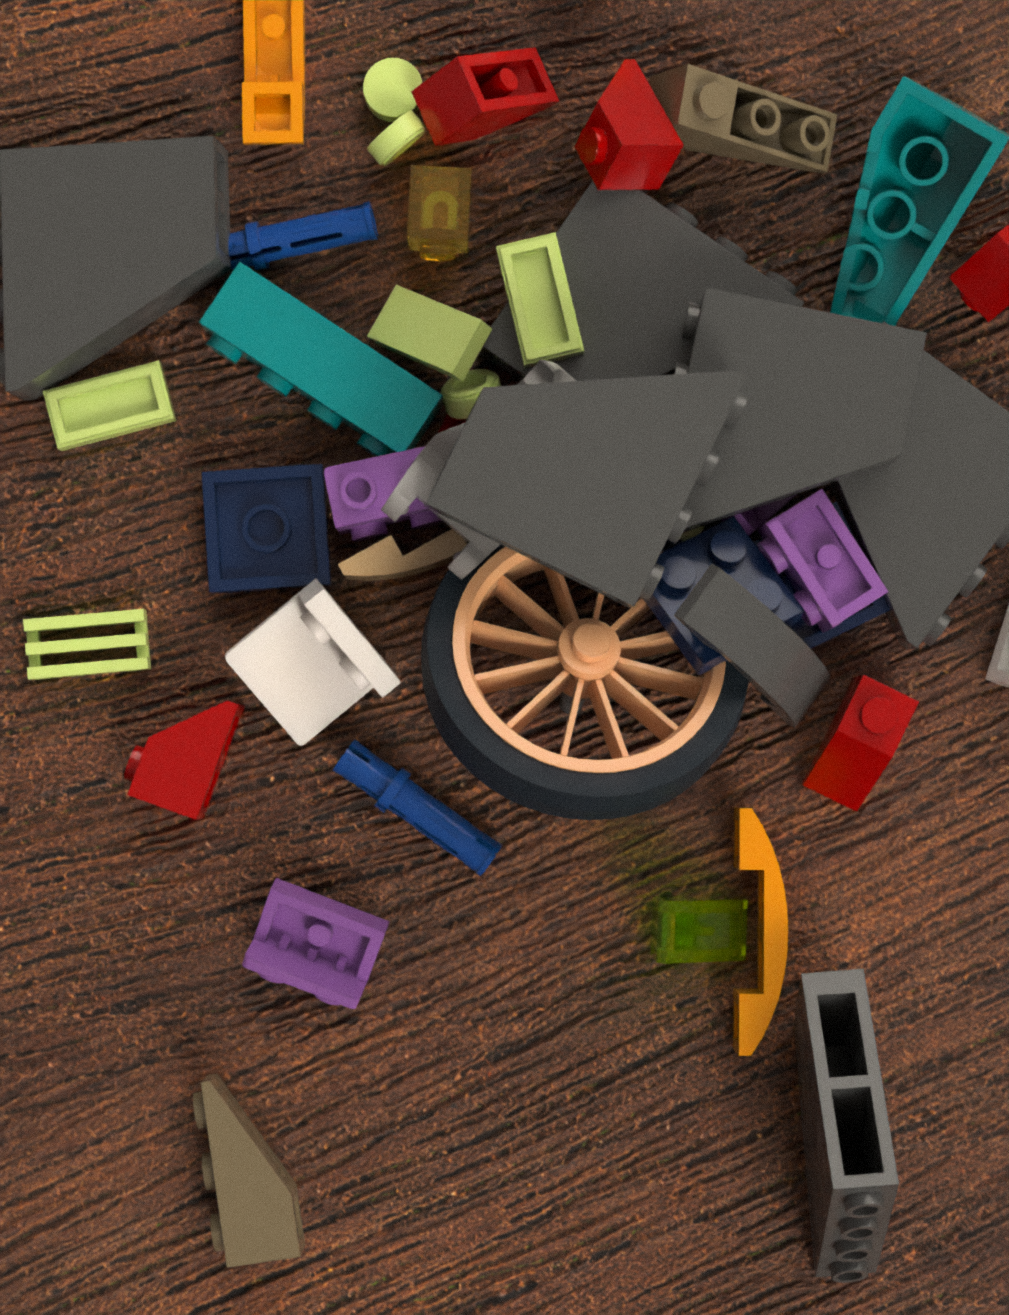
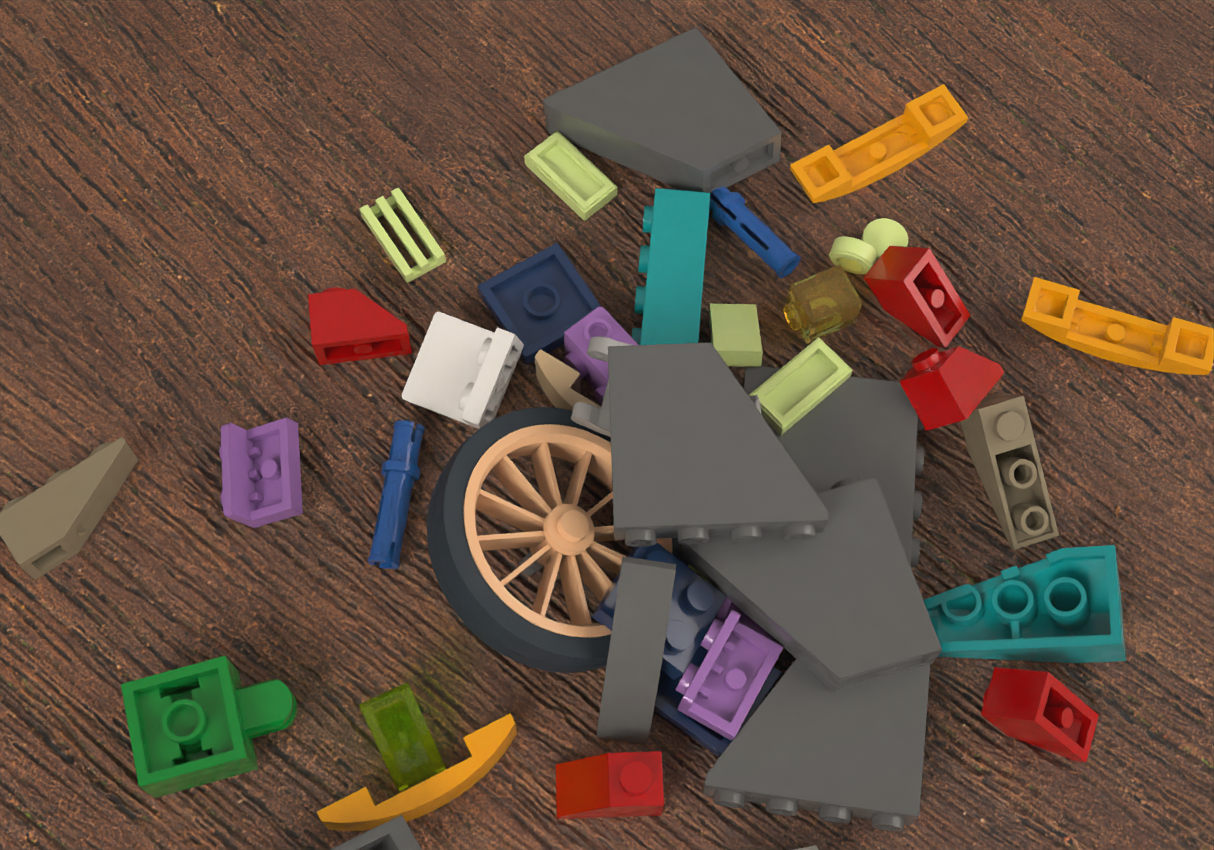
camera: 60 degrees right, 20 degrees down
(580, 1133) = (200, 724): none -> green brick

